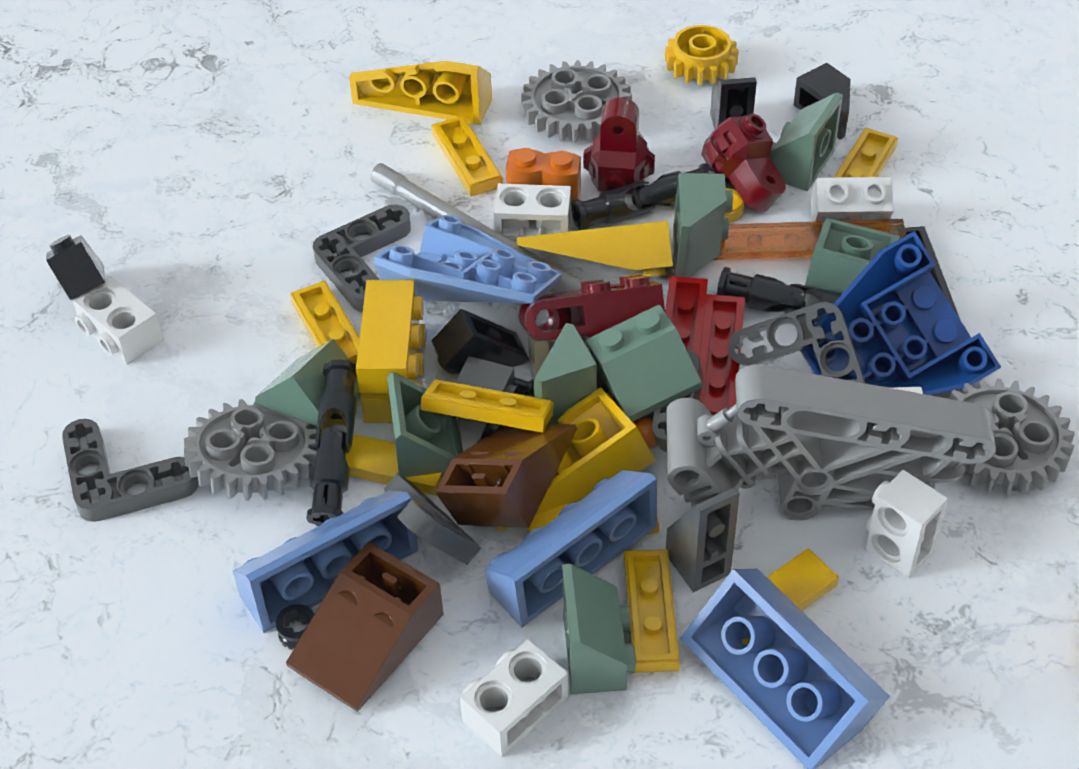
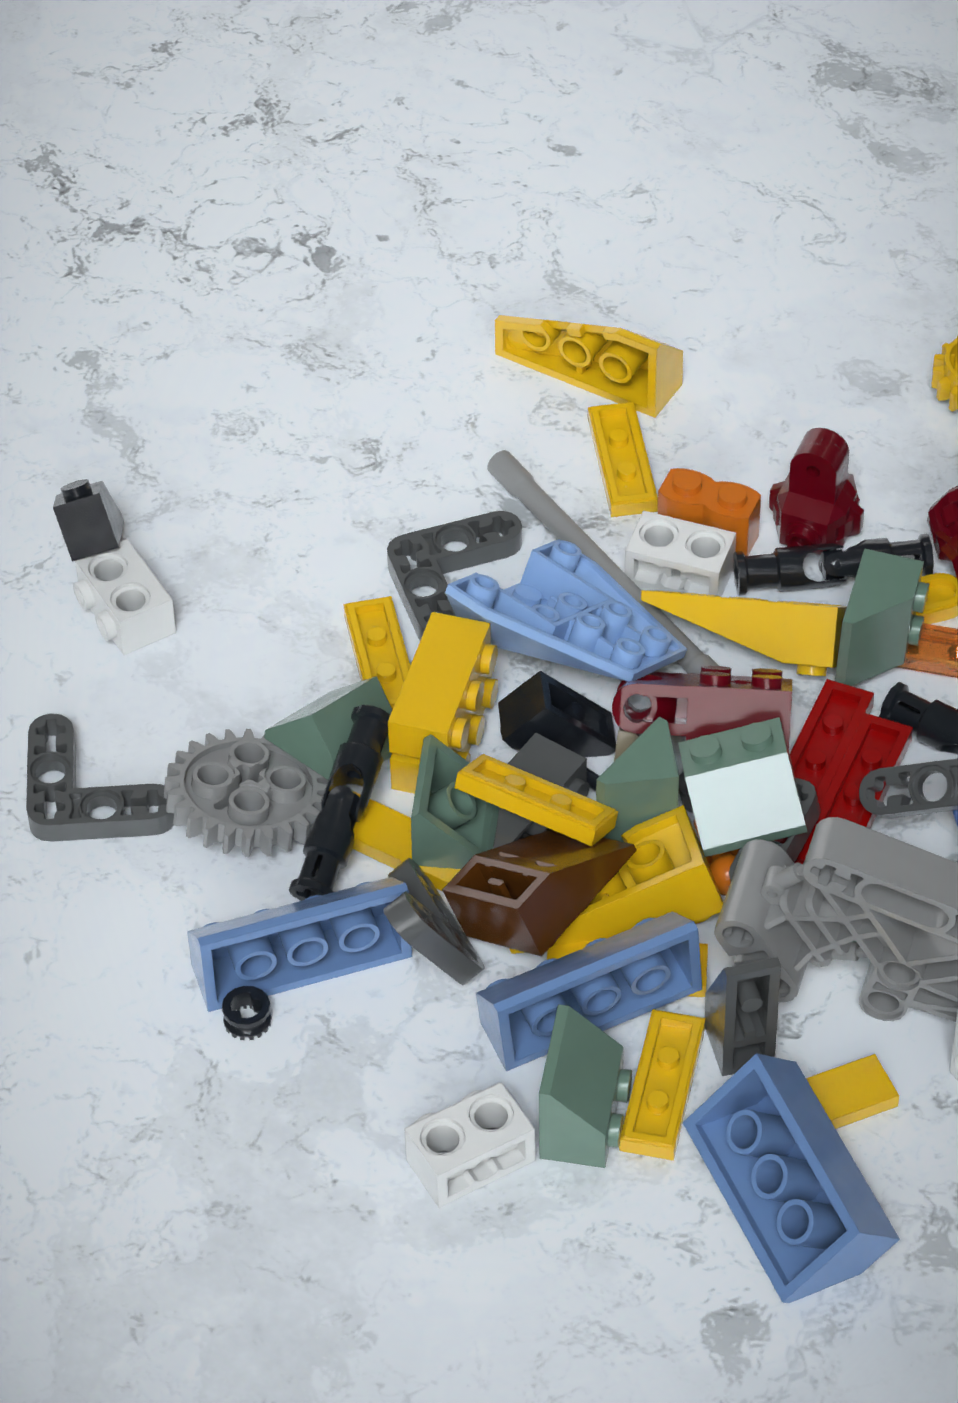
camera: 15 degrees right, 0 degrees up
(366, 626) = (325, 1027): reddish brown slope -> none
(571, 99) = (781, 399): light grey gear -> none

